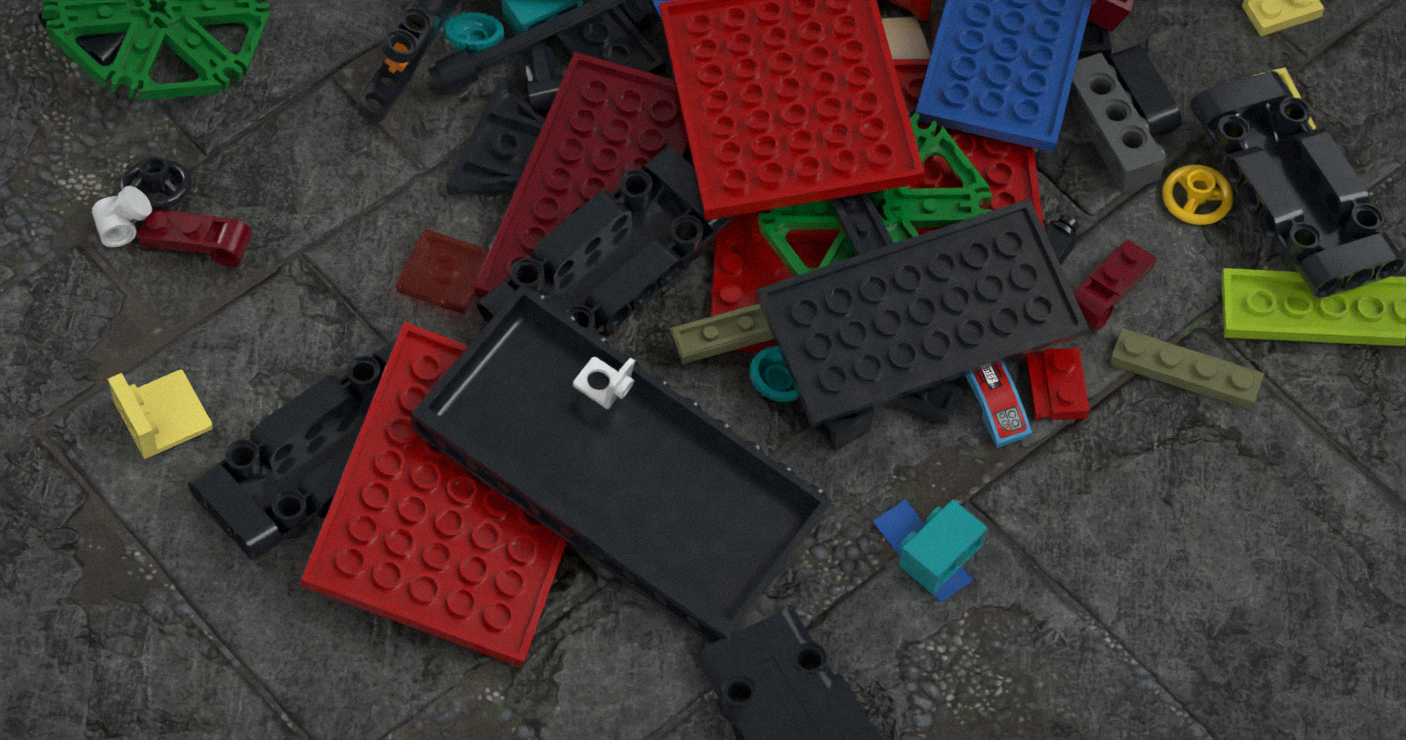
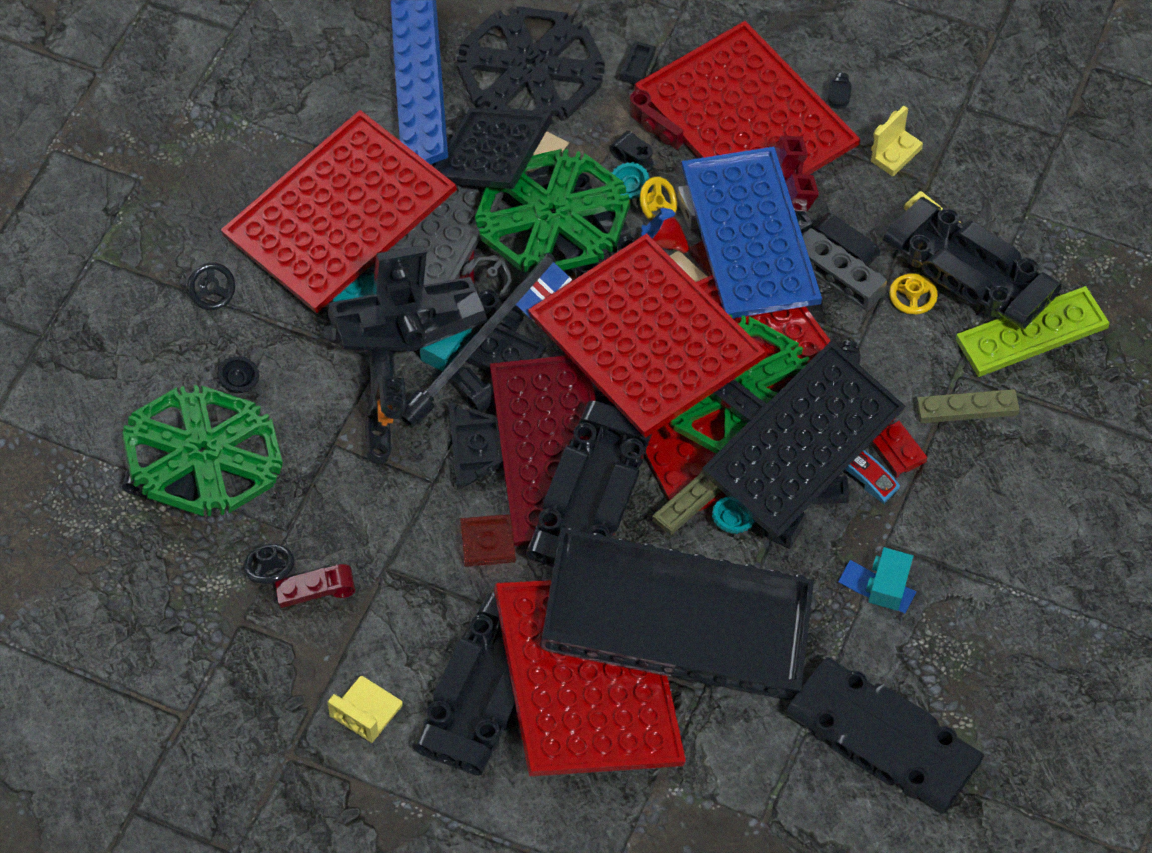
camera: 25 degrees left, 0 degrees up
(117, 215) = (259, 595): white piece -> none
(473, 31) = (416, 376): teal hat -> none
(619, 382) = (653, 564): white bracket -> none
(1112, 282) = (896, 368): dark red plate -> none

